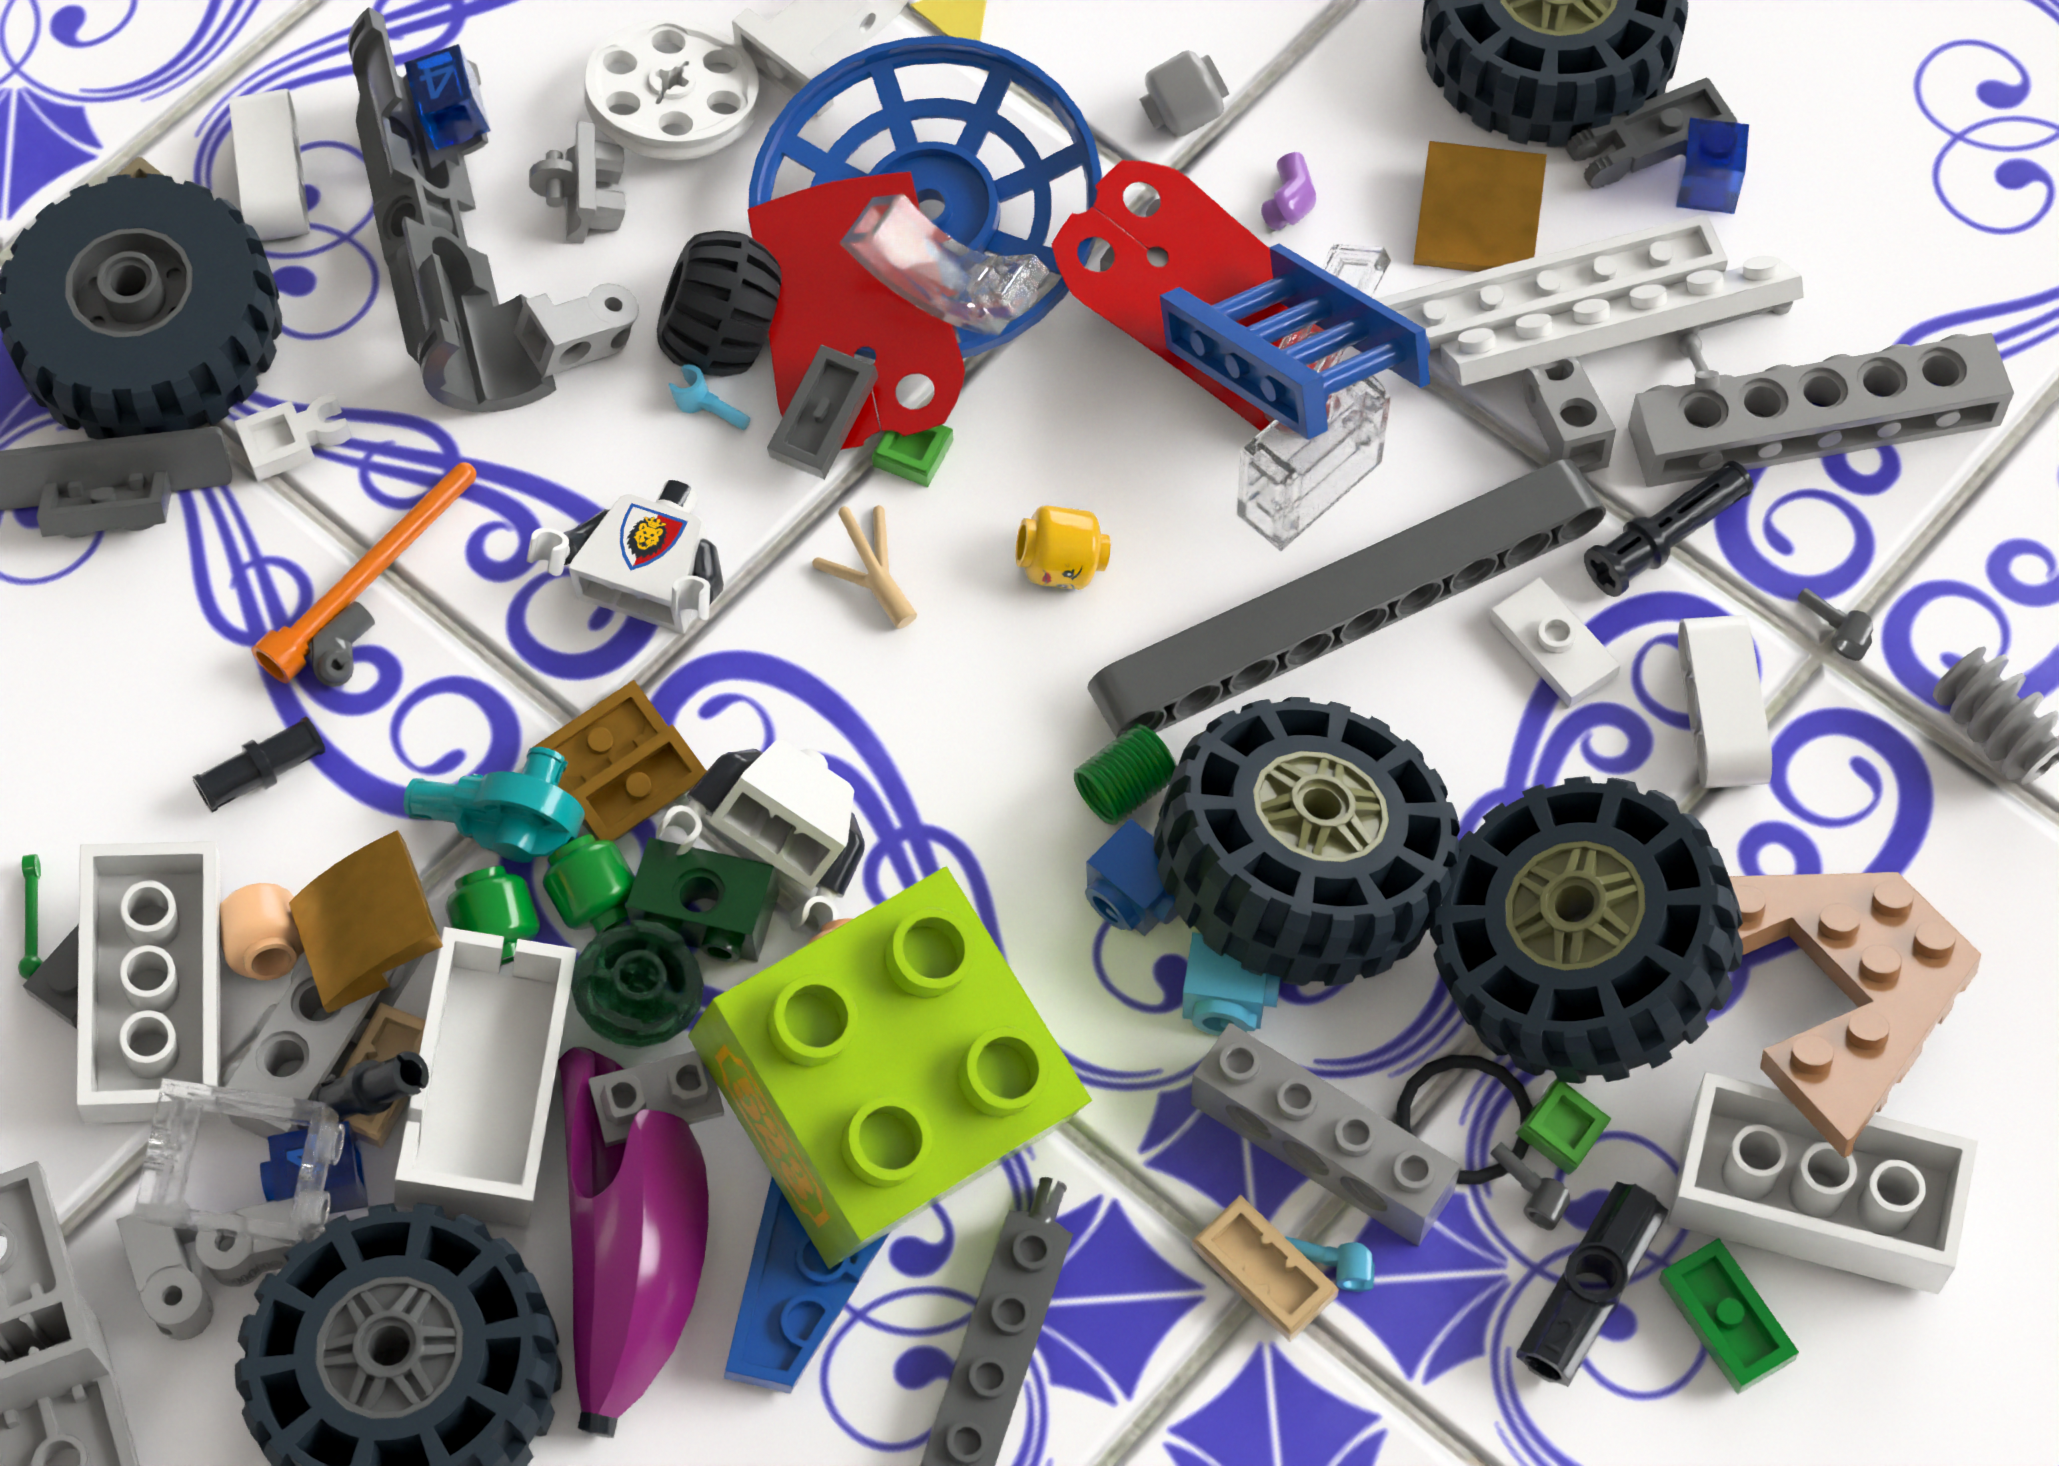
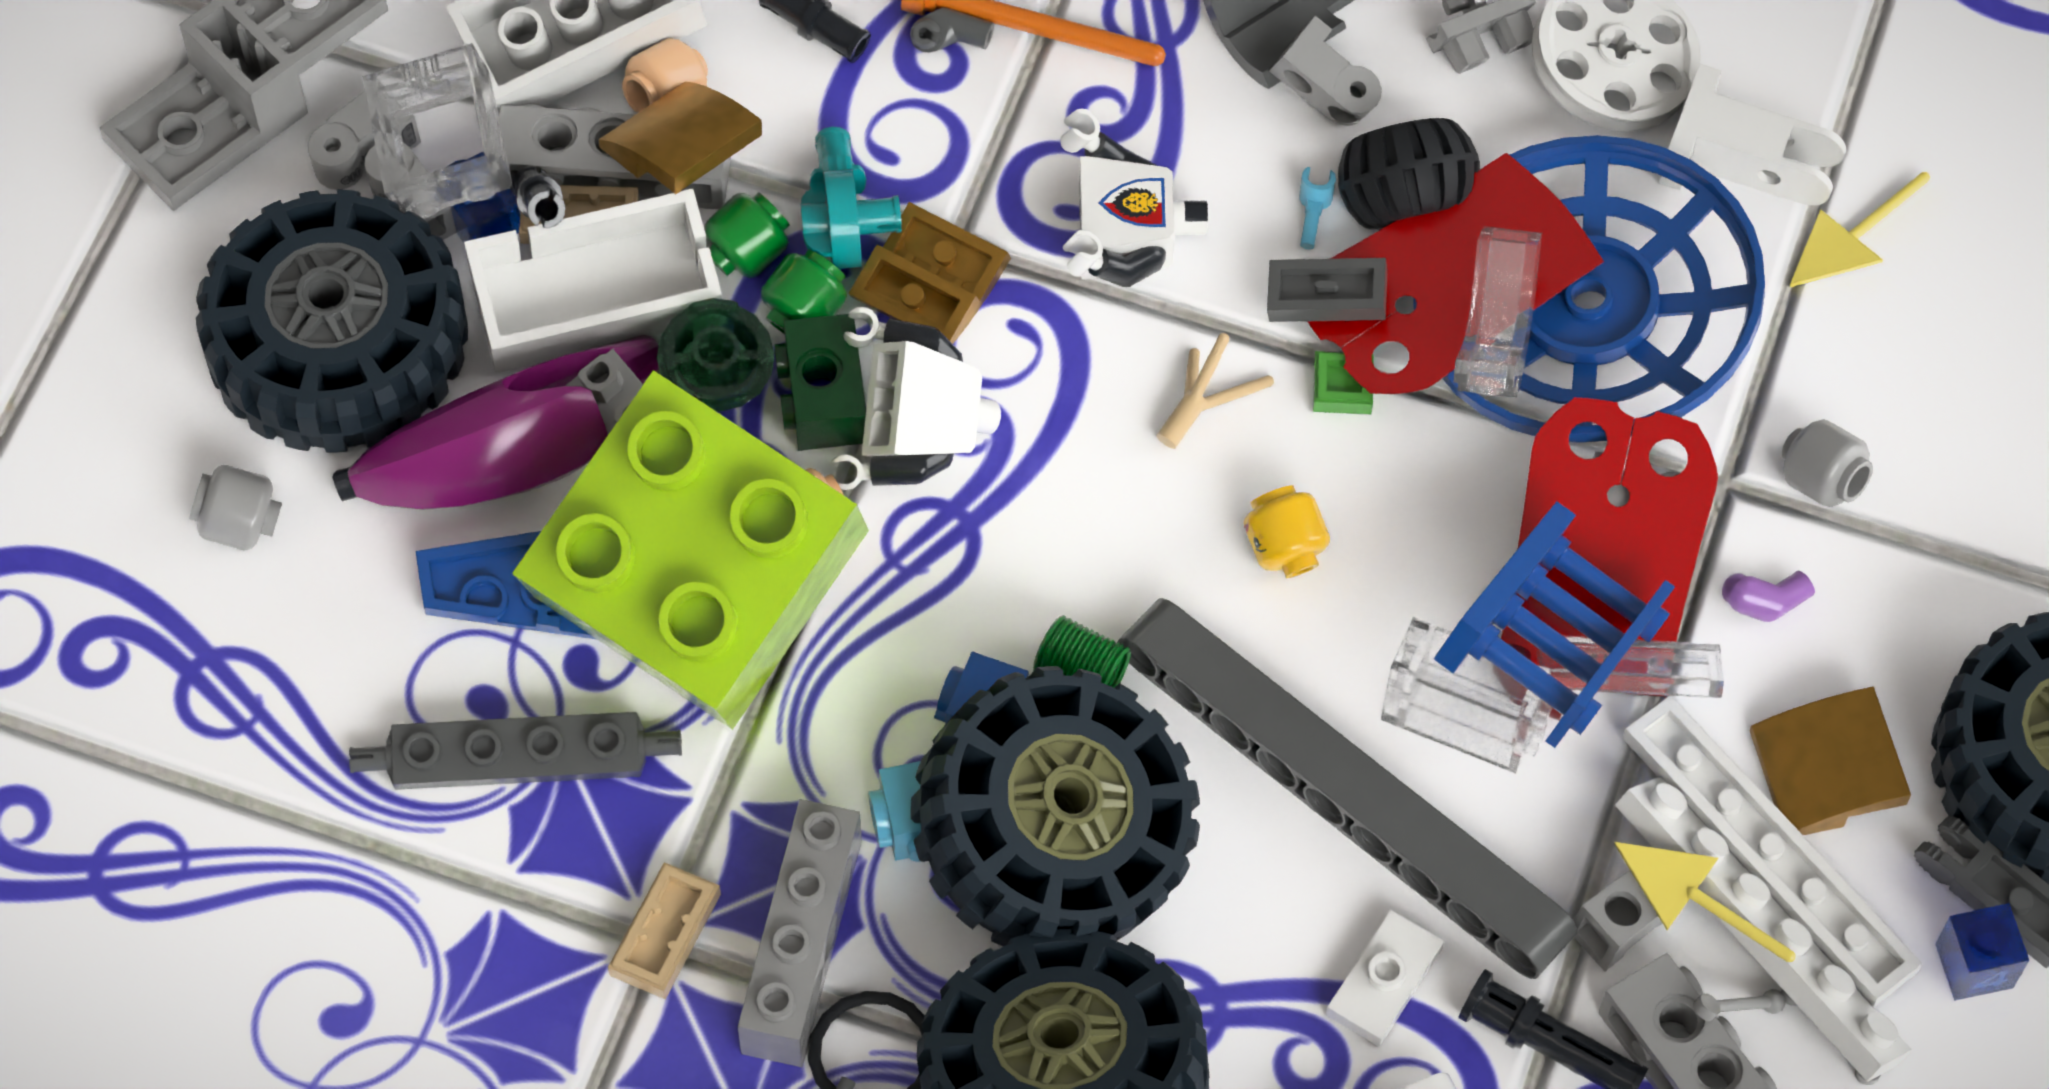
camera: 65 degrees right, 0 degrees up
(1352, 1260) = (696, 1002): medium azure hand -> none
(1567, 365) = (1674, 878): none -> light yellow piece

